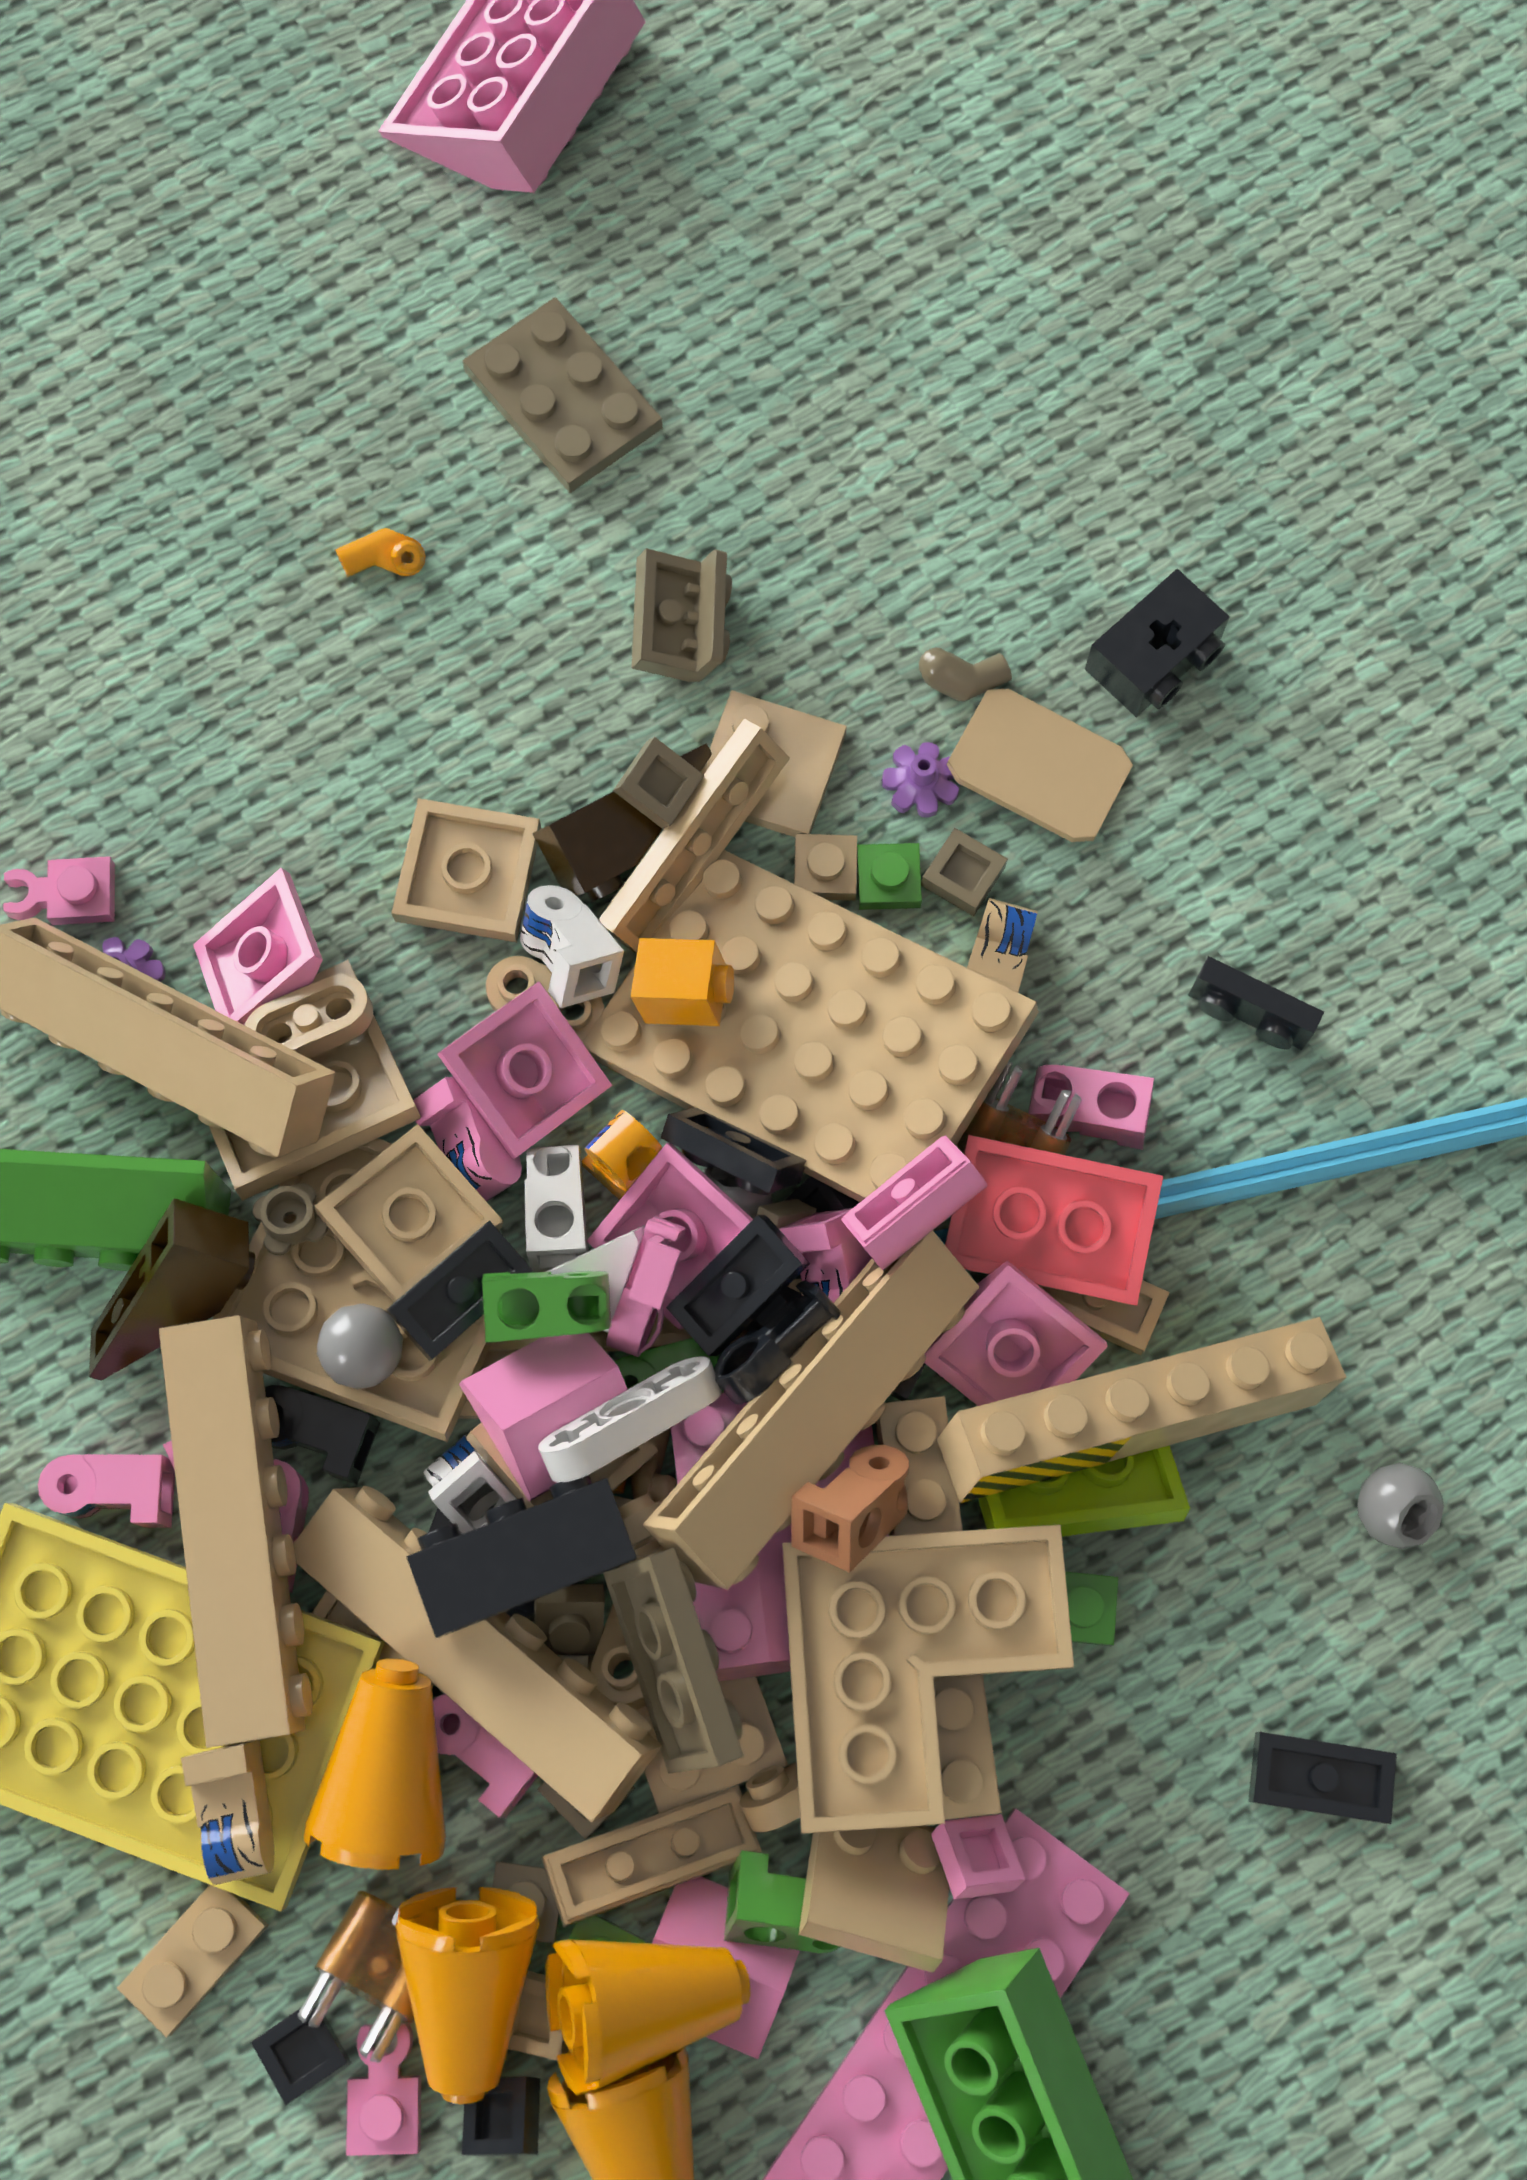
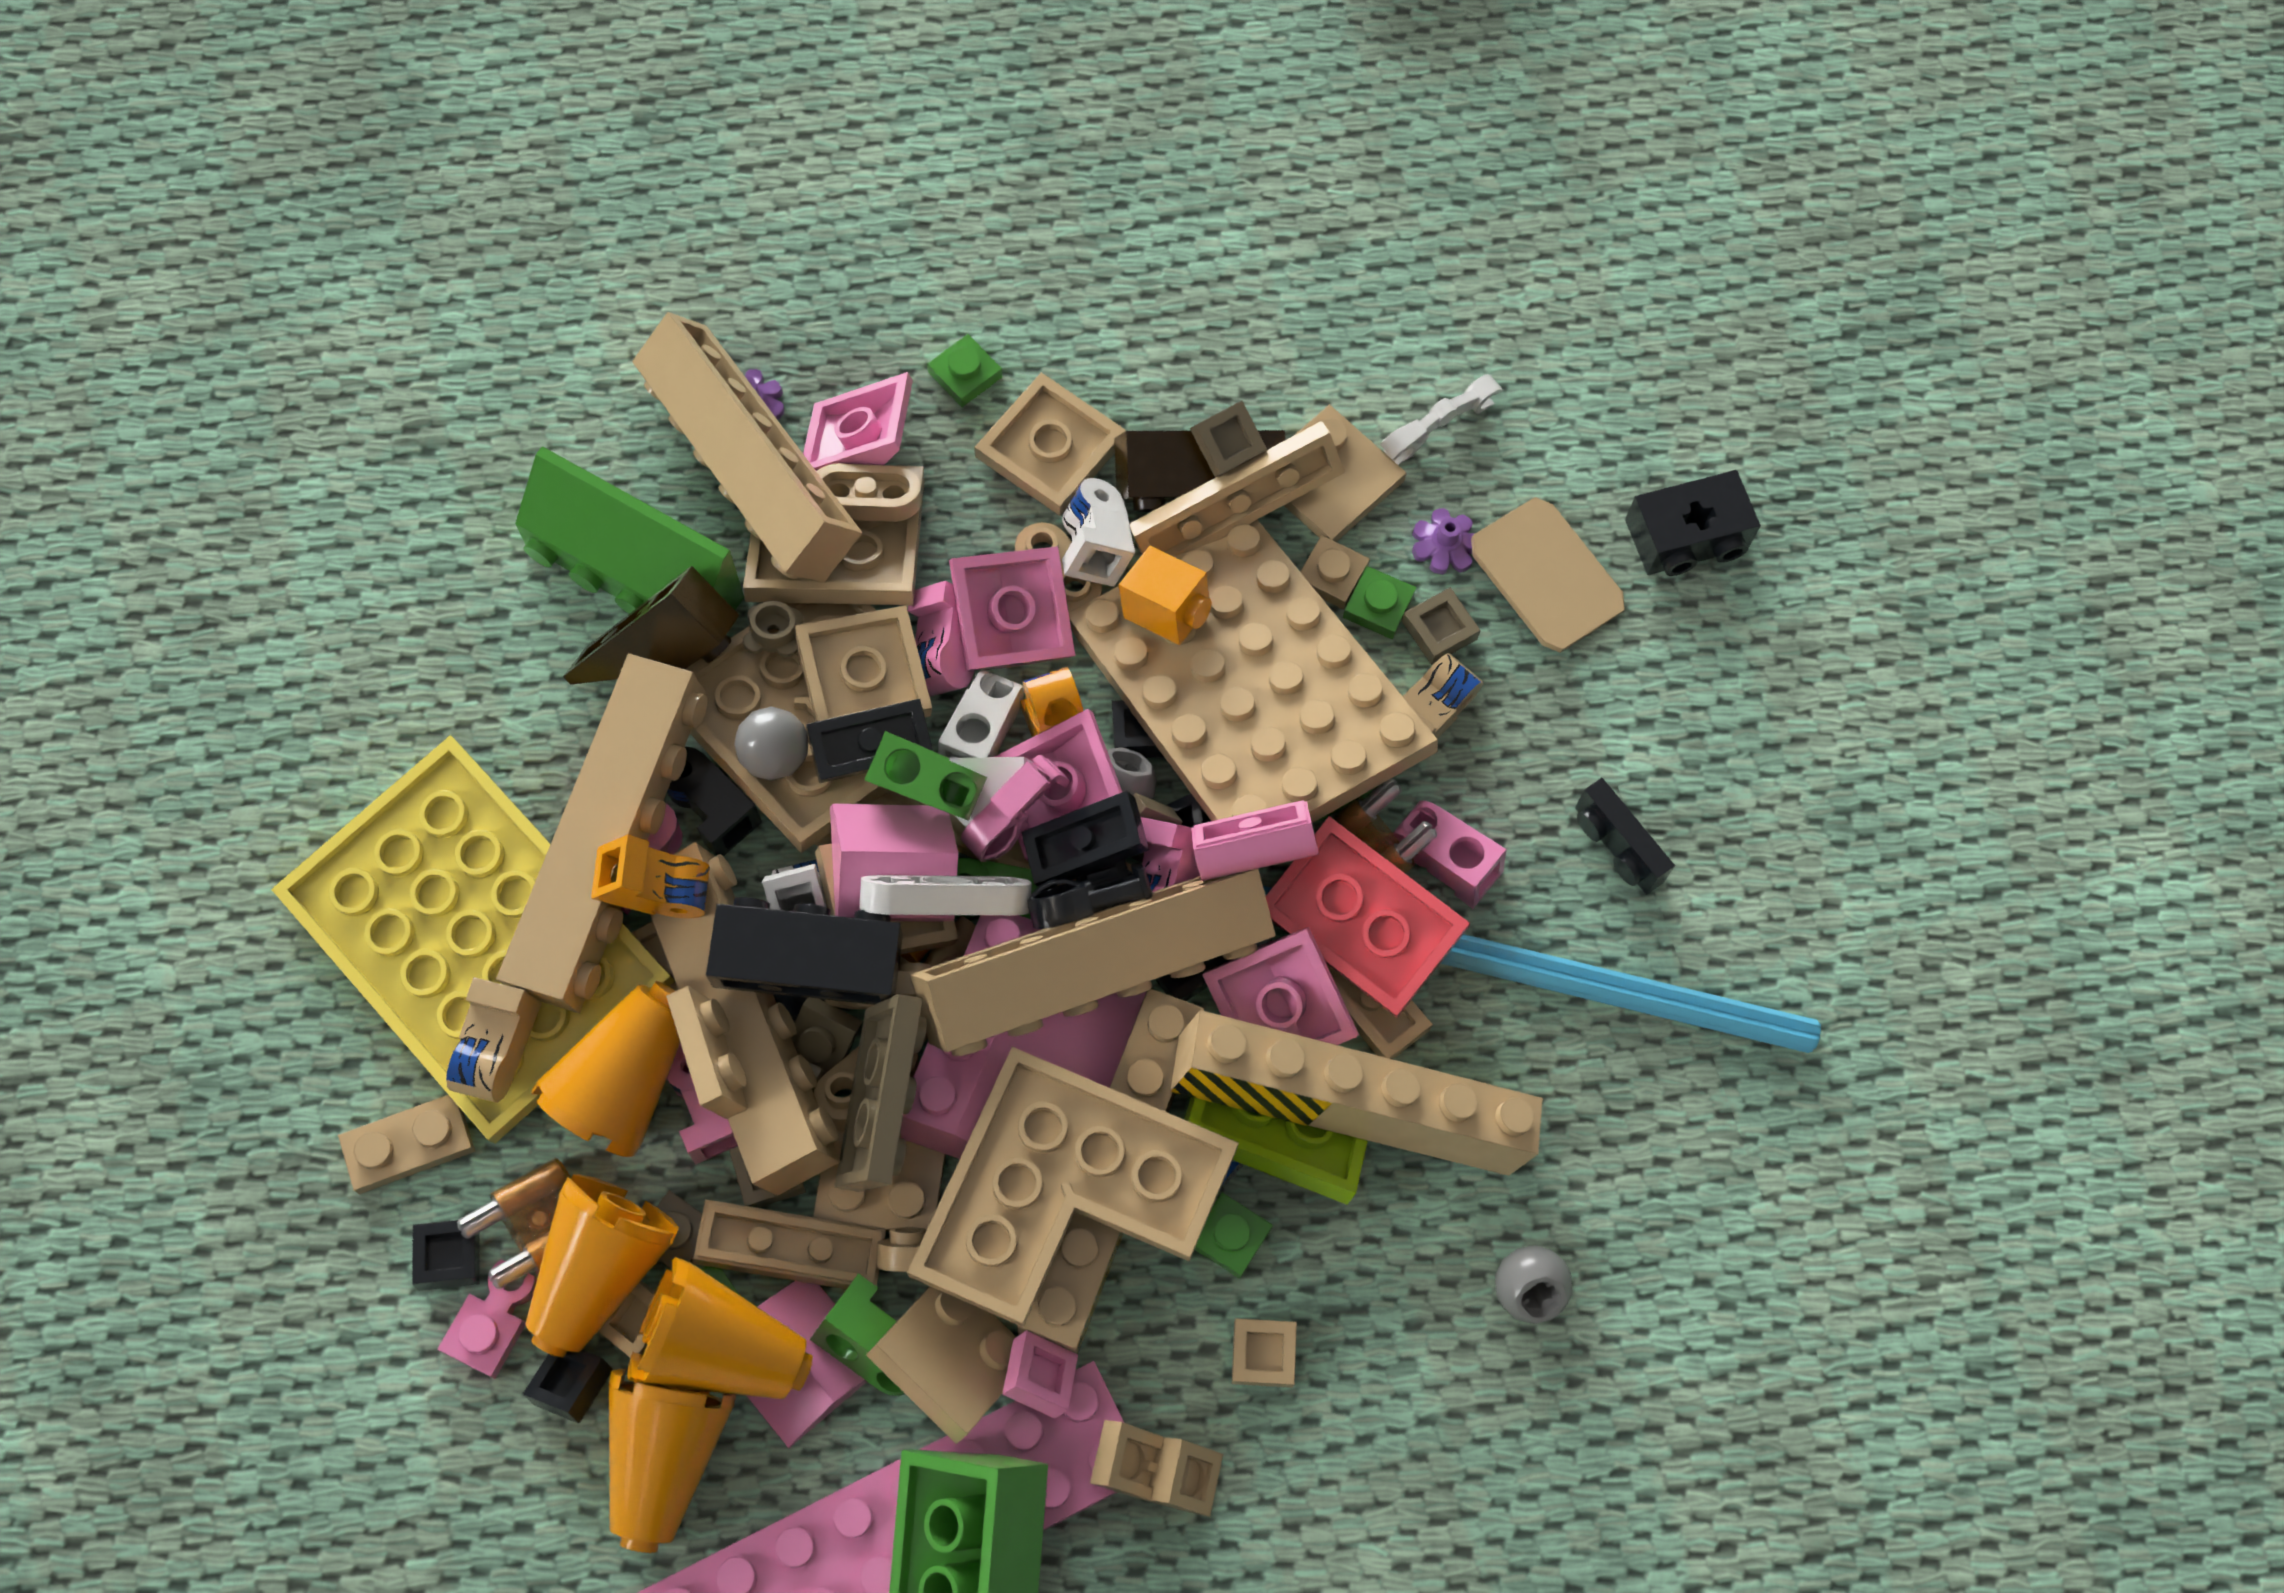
camera: 25 degrees right, 5 degrees down
(72, 893) = (744, 324): bright pink plate -> none
(92, 1482) = (530, 759): bright pink leg -> none
(314, 1560) = (650, 879): none -> light orange leg
(333, 832) = (964, 370): none -> bright green plate
(385, 550) = (1116, 180): light orange arm -> none
(490, 1727) = (712, 1066): none -> tan plate
(562, 394) = (1317, 128): dark tan plate -> none
(680, 614) = (1318, 329): dark tan bracket -> none
(716, 1143) = (1128, 730): black plate -> none
(831, 687) = (1408, 439): none -> white piece
(854, 1509) = (1080, 1046): nougat leg -> none
(958, 677) = (1518, 479): dark tan arm -> none
(1135, 1885) = (1156, 1468): none -> tan slope
(1177, 1711) = (1264, 1353): none -> tan plate
(1322, 1777) = (1355, 1467): black plate -> none

